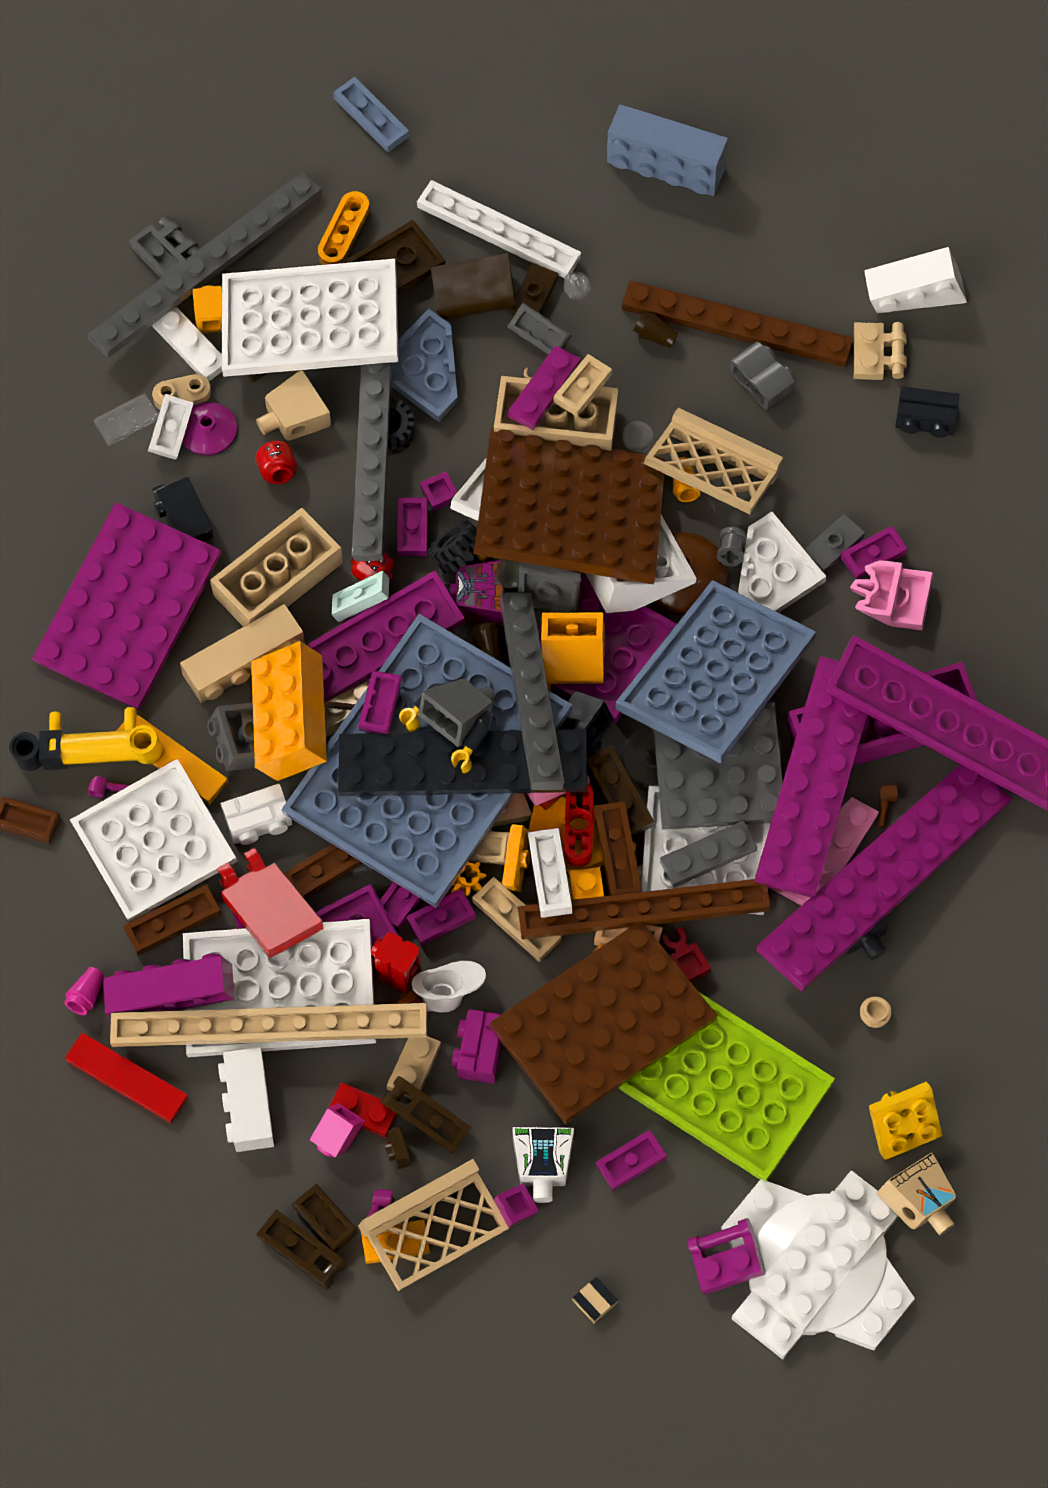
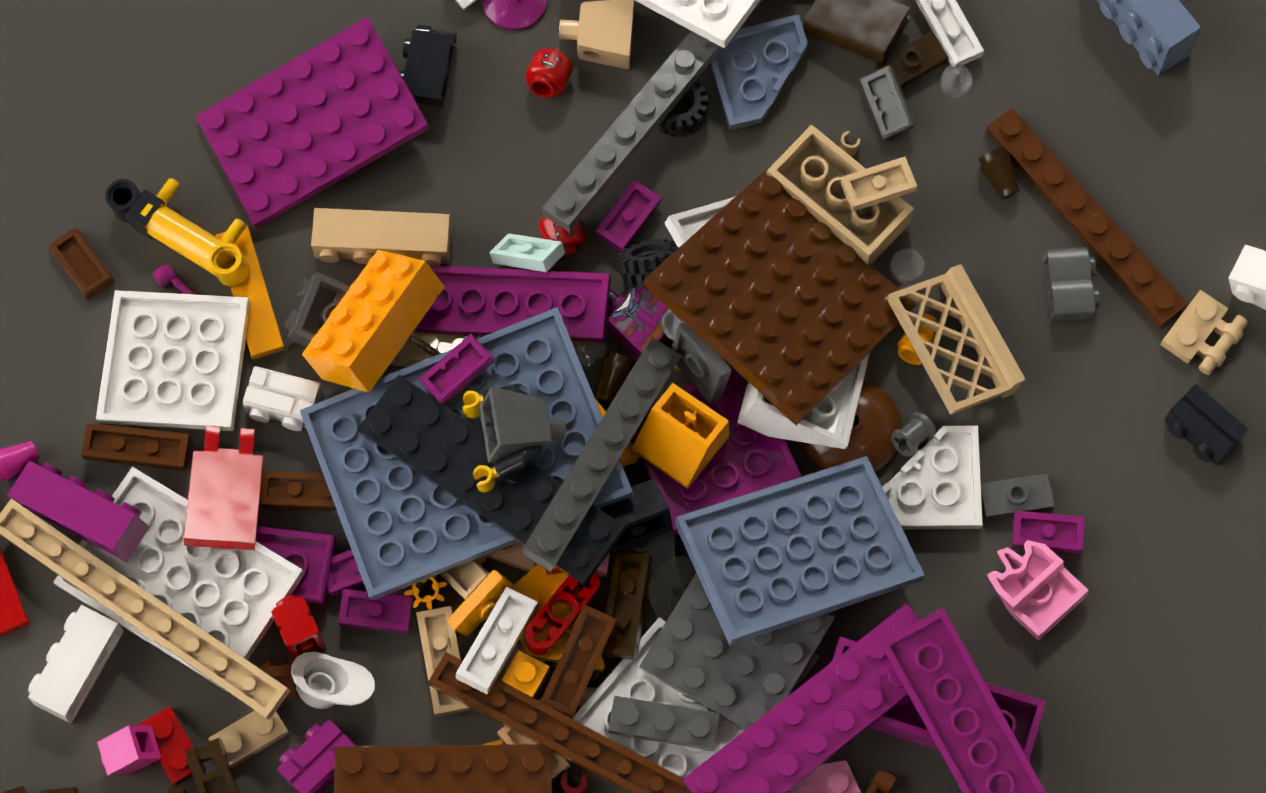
camera: 35 degrees right, 5 degrees up
(277, 569) = (470, 176): tan brick -> none
(438, 491) = (678, 196): magenta plate -> none
(542, 387) = (829, 165): magenta plate -> none

